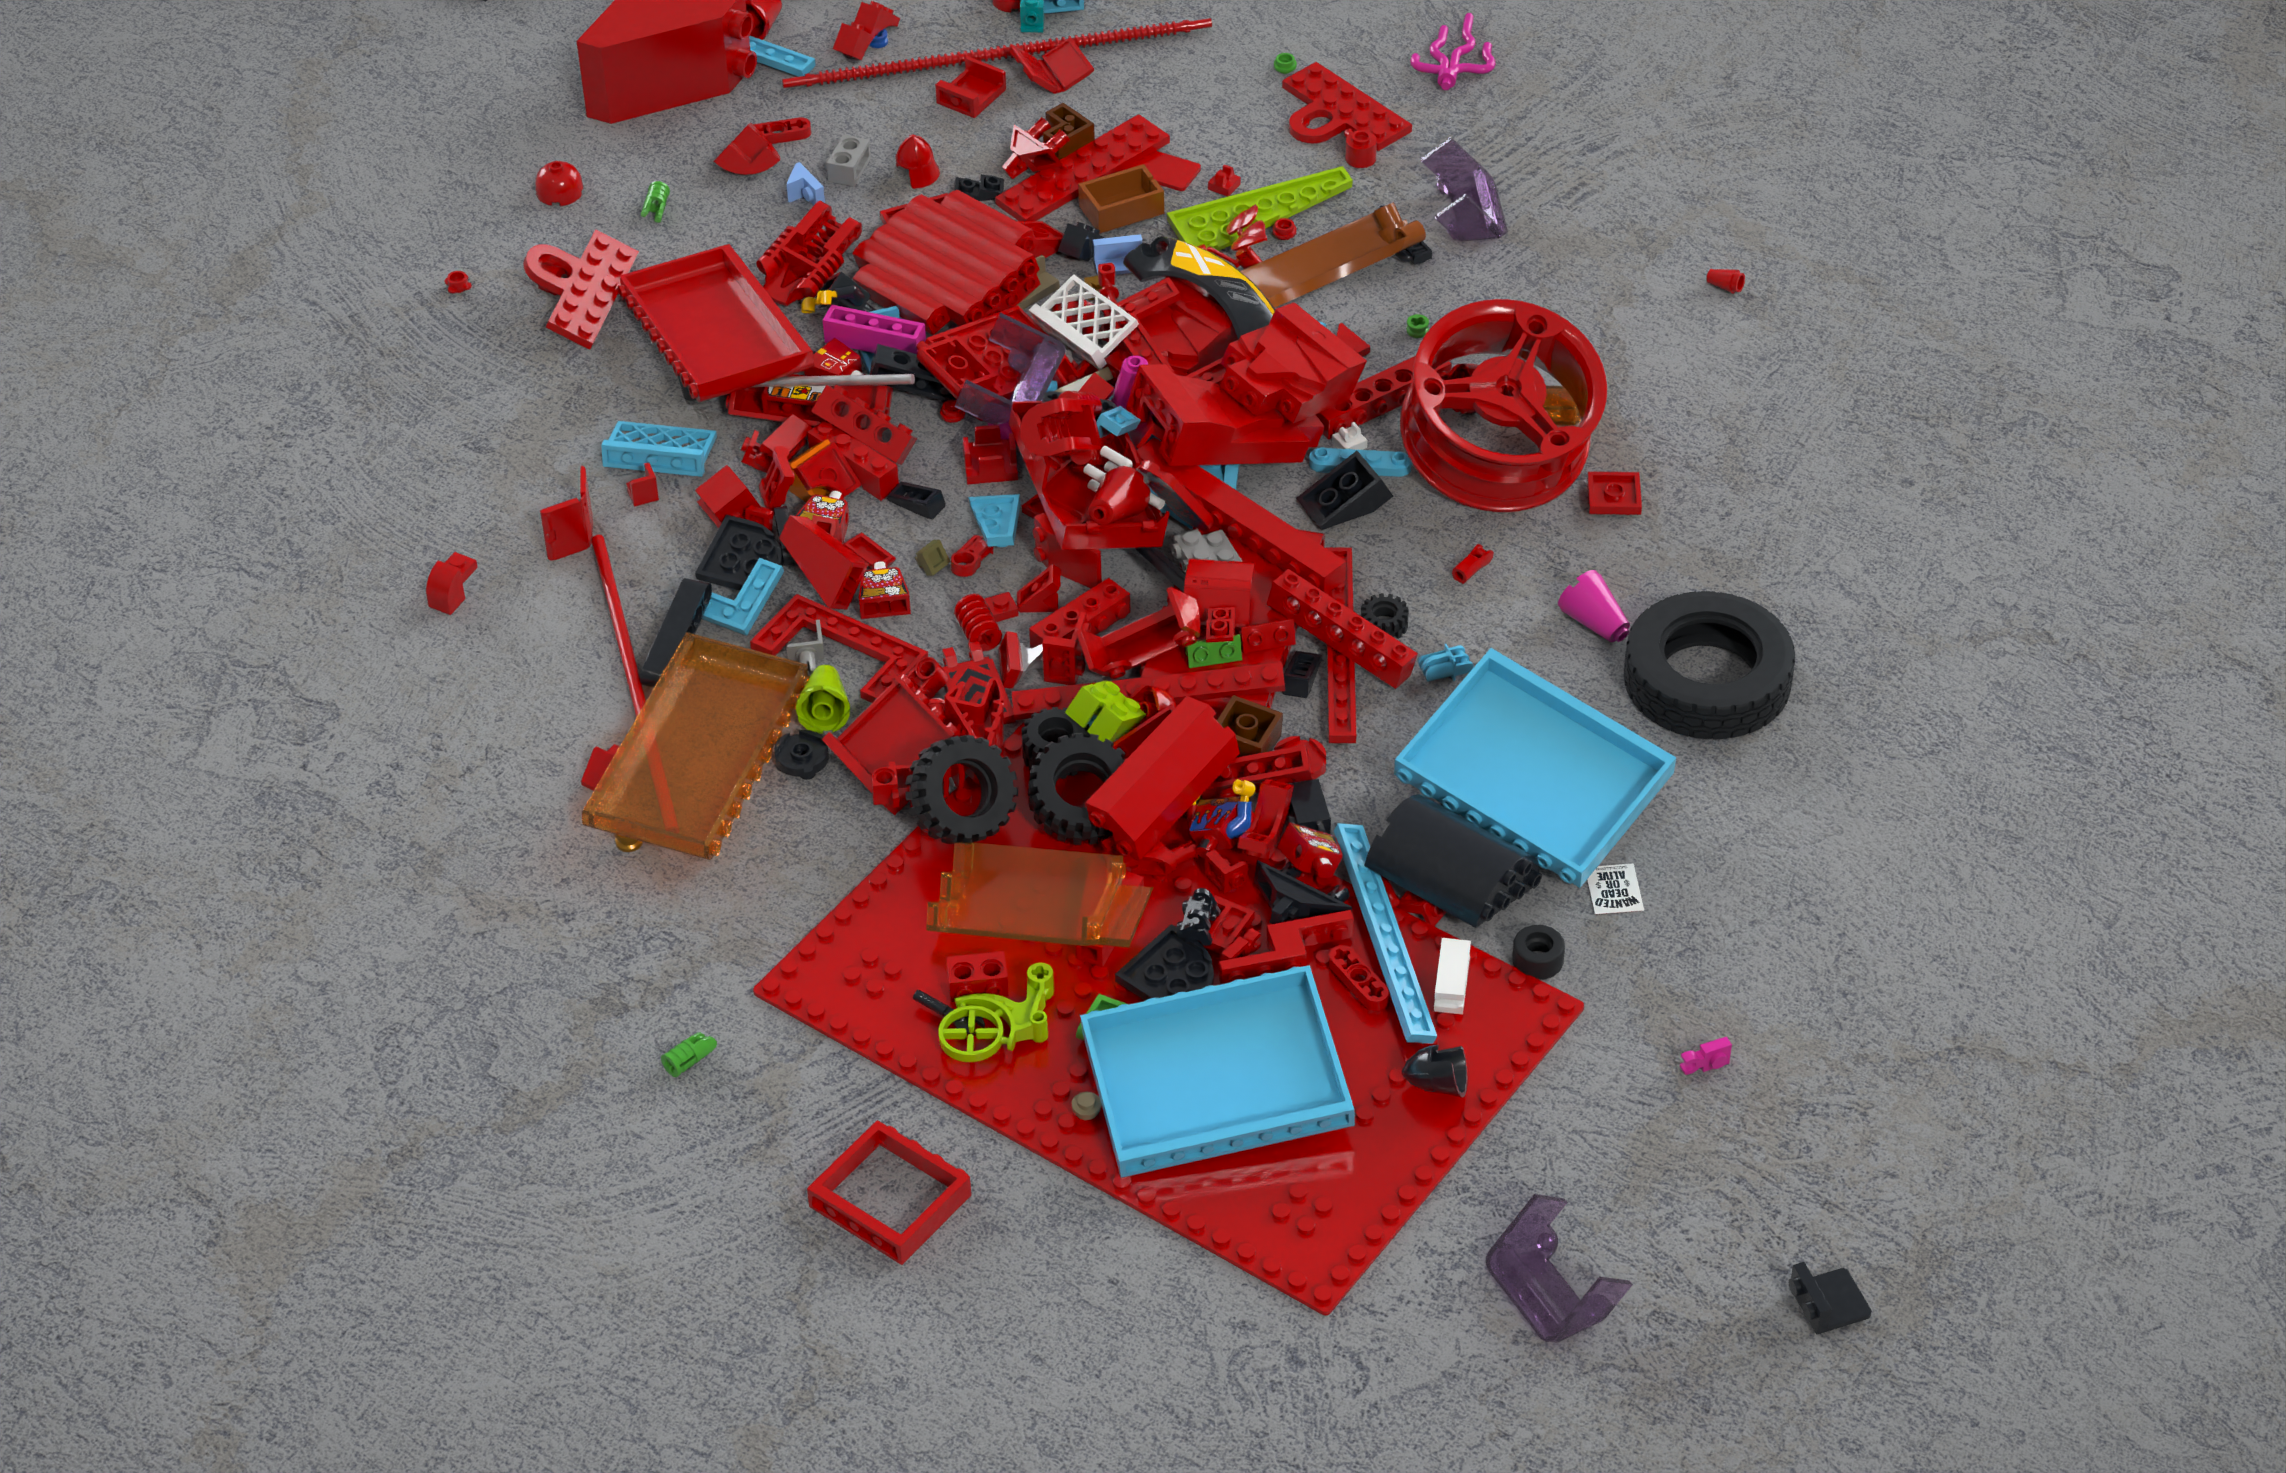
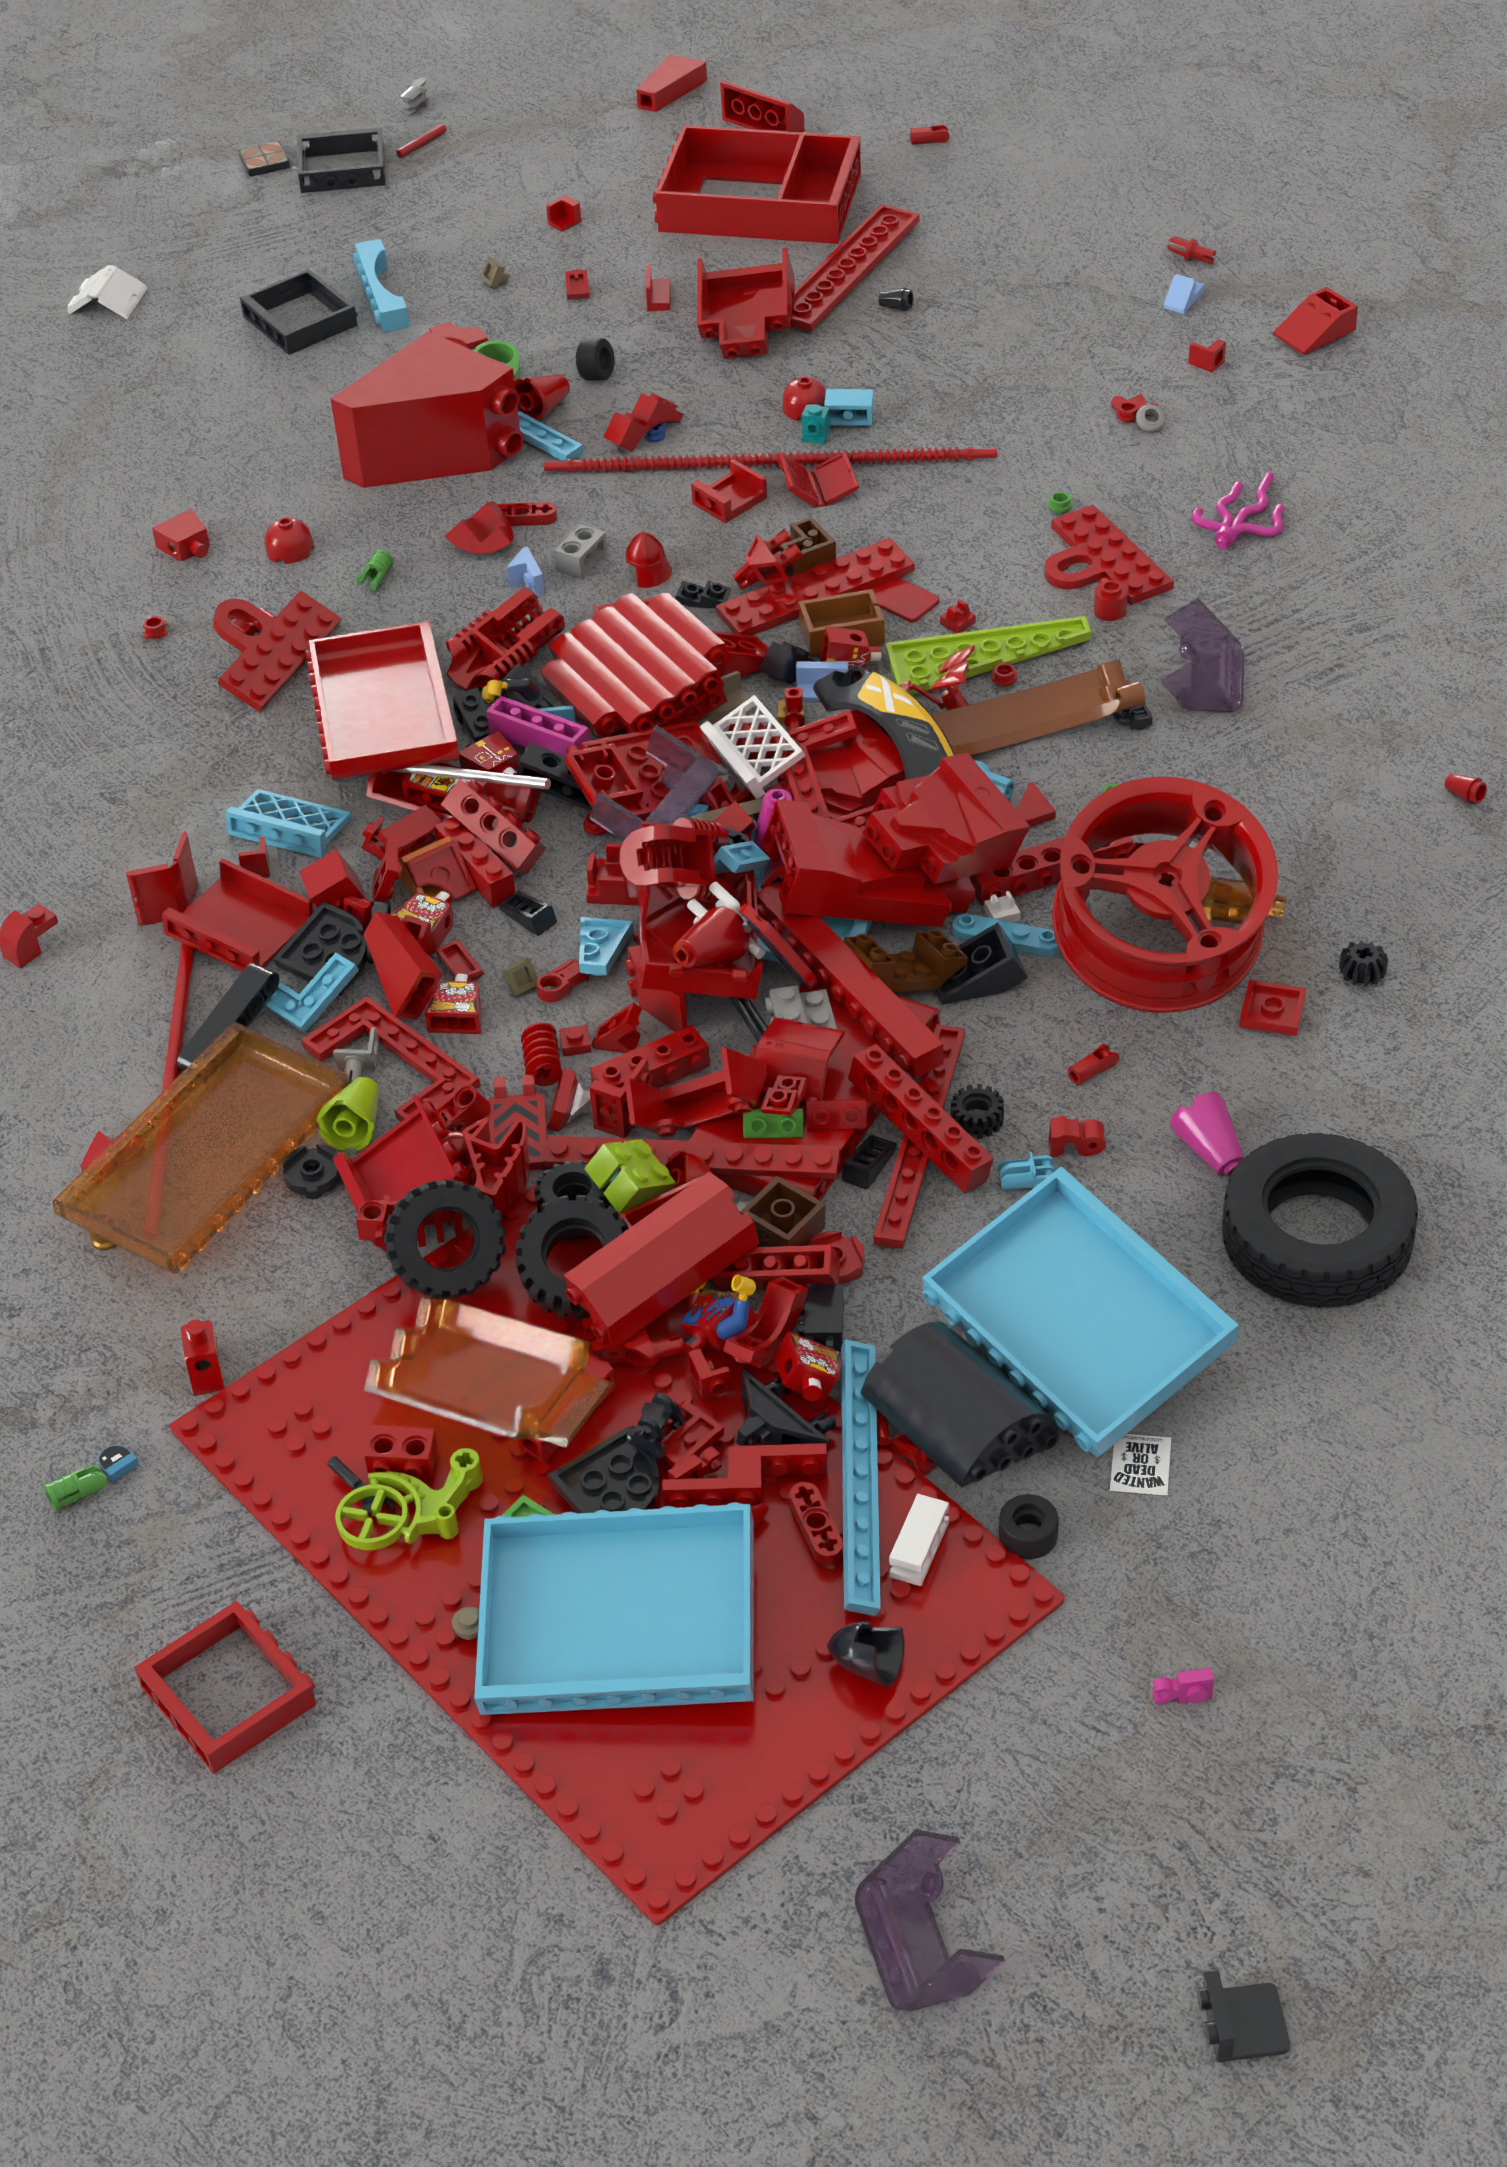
camera: 15 degrees right, 0 degrees up
(452, 191) = (182, 536): none -> red torso
(650, 540) = (239, 918): none -> red panel
(717, 1026) = (116, 1461): none -> tile
(760, 915) = (201, 1344): none -> red torso
(805, 324) = (471, 711): none -> black plate
(1136, 220) = (848, 646): none -> red torso
(1298, 498) = (927, 967): none -> reddish brown slope
(1487, 624) = (1086, 1136): none -> red leg
(1681, 444) = (1363, 963): none -> black gear

